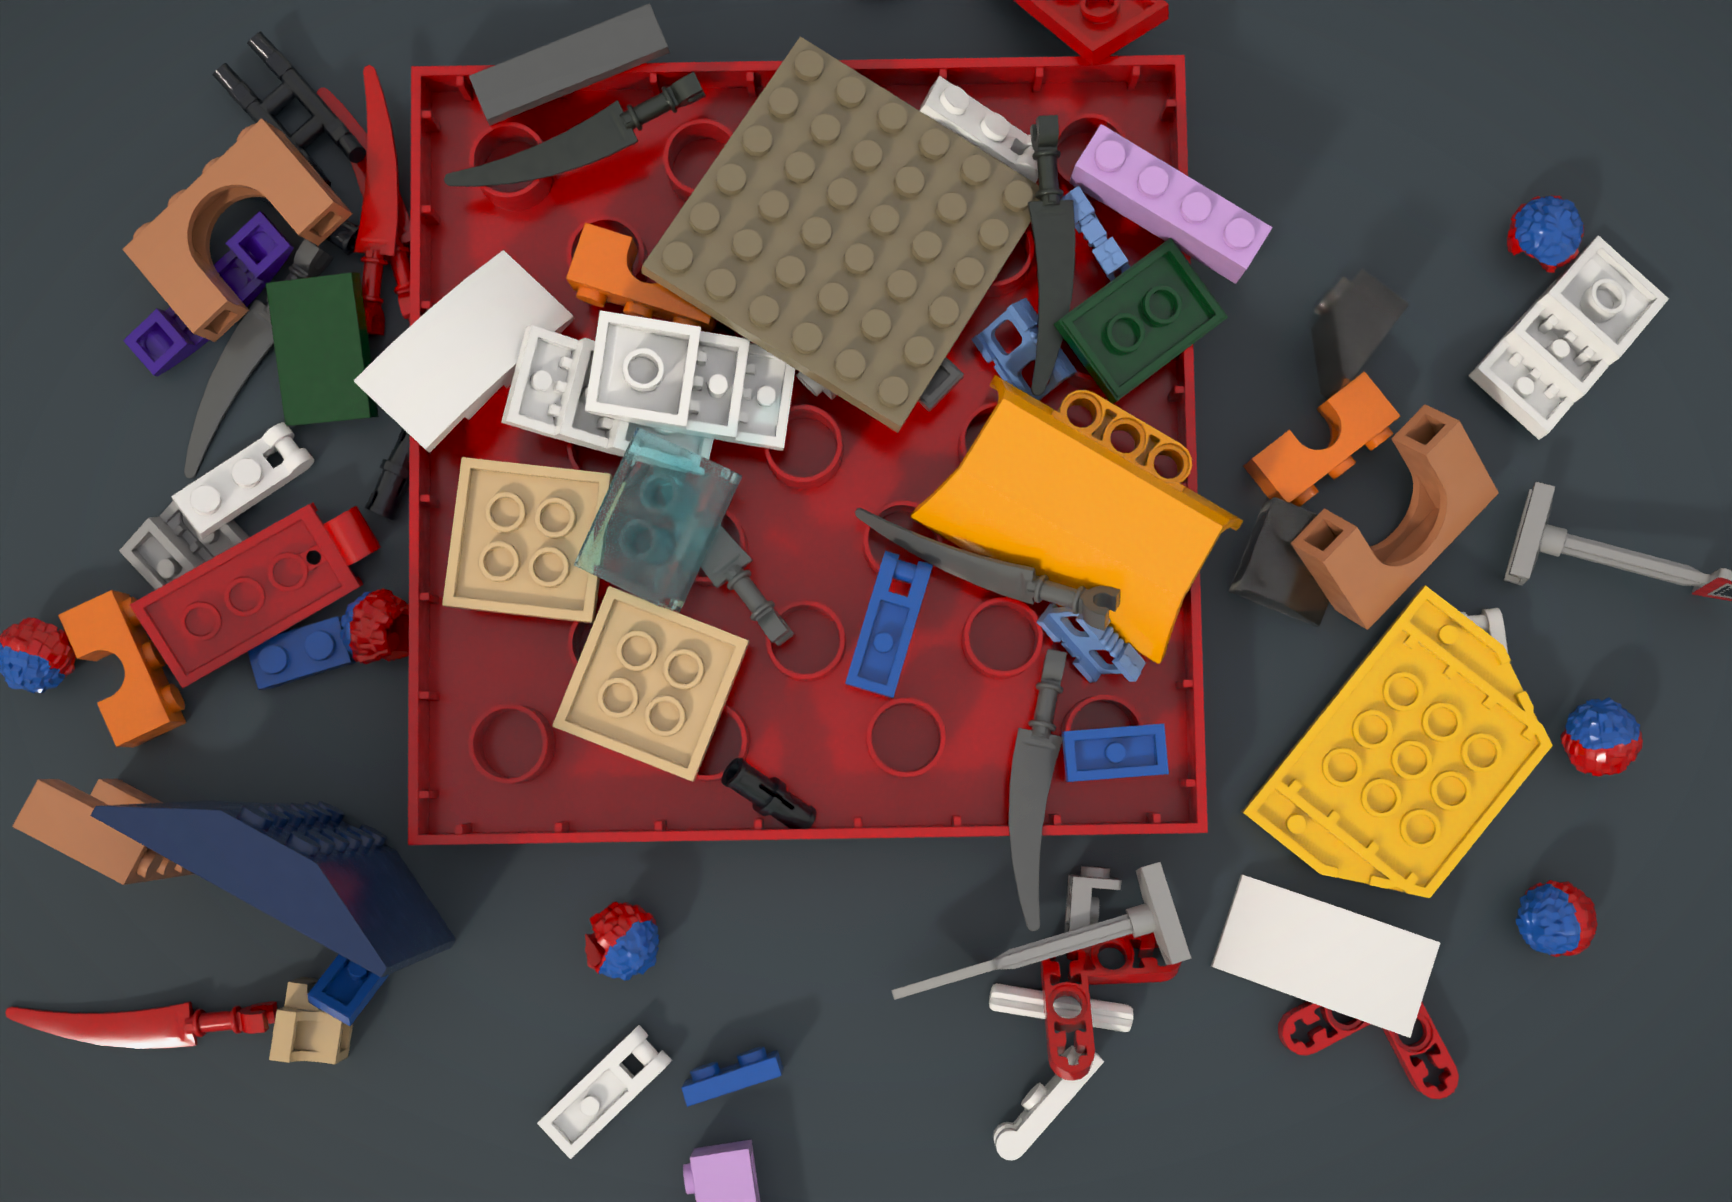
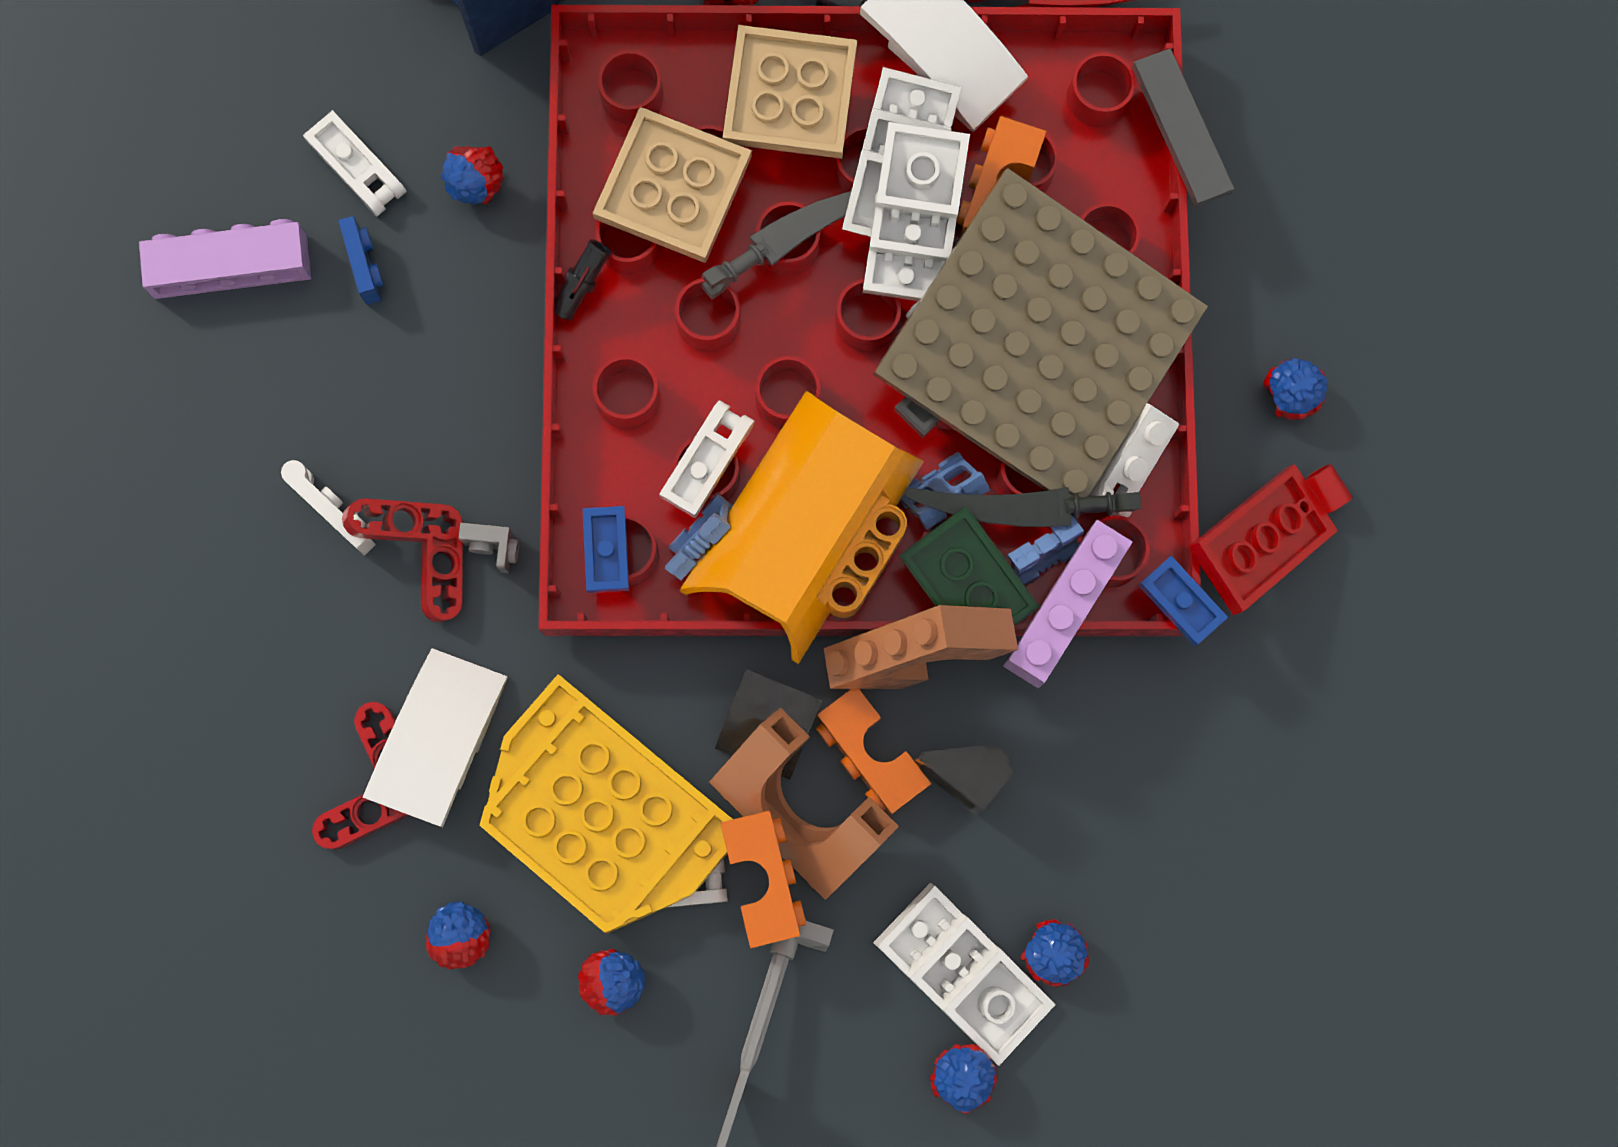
camera: 85 degrees right, 5 degrees down
(583, 144) = (1117, 140): pearl dark grey sword -> none
(657, 520) = (801, 186): clear light blue slope -> none
(888, 626) = (715, 370): blue plate -> none
(1000, 576) = (751, 461): dark grey sword -> none
(1001, 634) = (706, 460): none -> white plate
(1029, 786) = (579, 485): dark grey sword -> none
(1030, 1003) = (398, 551): white axle -> none
(1155, 916) = (473, 591): light grey piece -> none
(1158, 72) = (1183, 601): none -> blue plate
(1233, 398) = (898, 652): none -> nougat arch
(1531, 550) = (774, 915): none -> orange arch
(1689, 335) = (964, 1077): none -> blue piece

